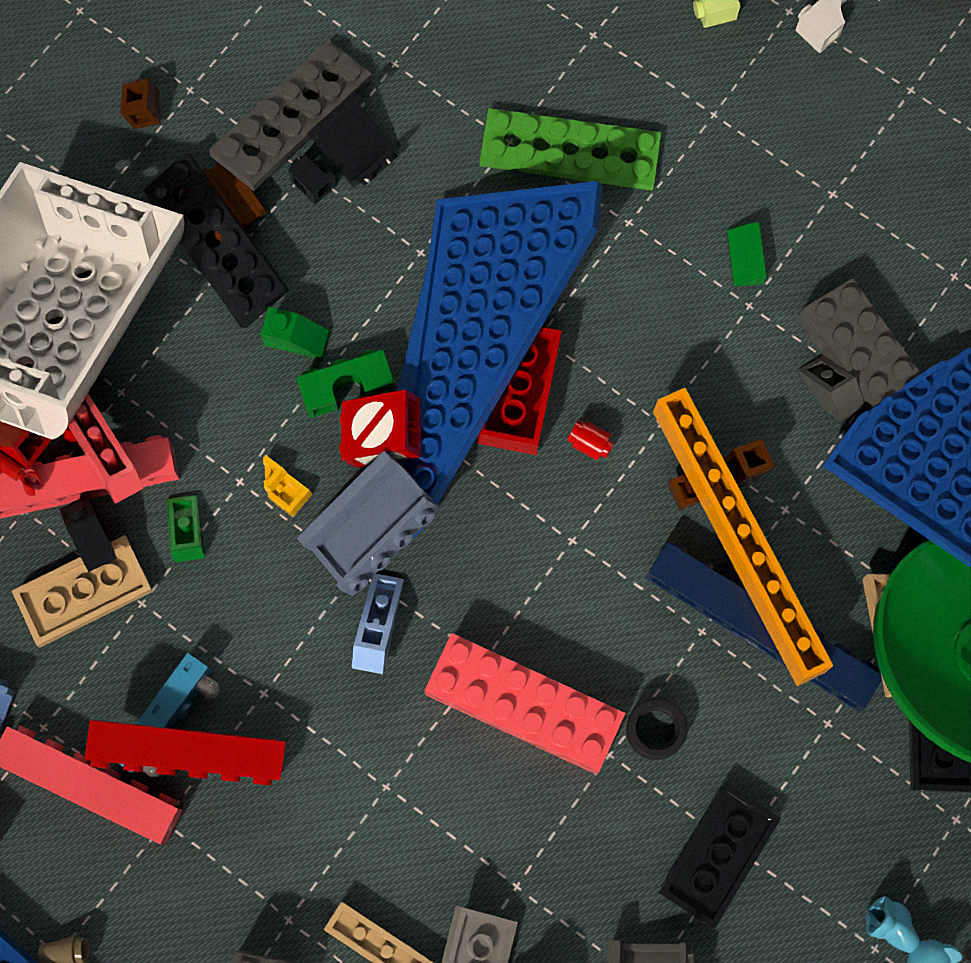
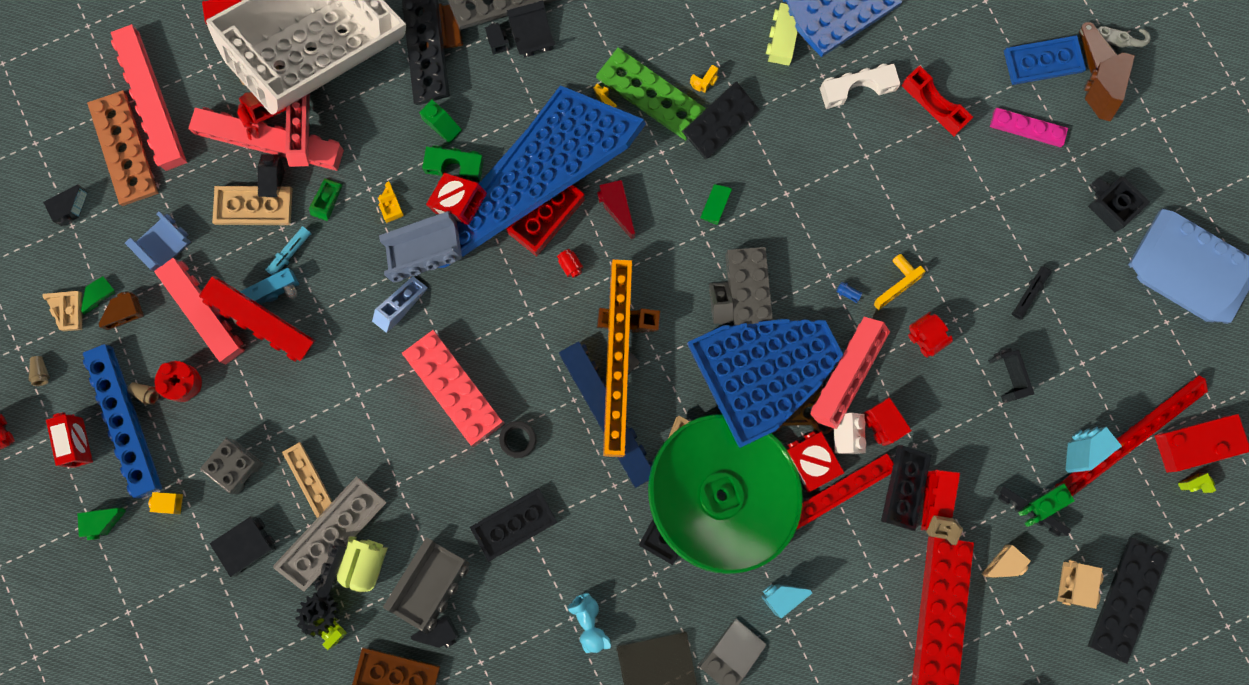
camera: 25 degrees right, 5 degrees up
(93, 898) = (167, 378): none -> red brick
(171, 632) = (303, 234): none -> medium azure pin
(503, 183) = (602, 93): none -> yellow slope
(610, 325) = (616, 204): none -> dark red slope
(634, 102) = (709, 79): none -> yellow bracket
(688, 138) = (720, 120): none -> black plate

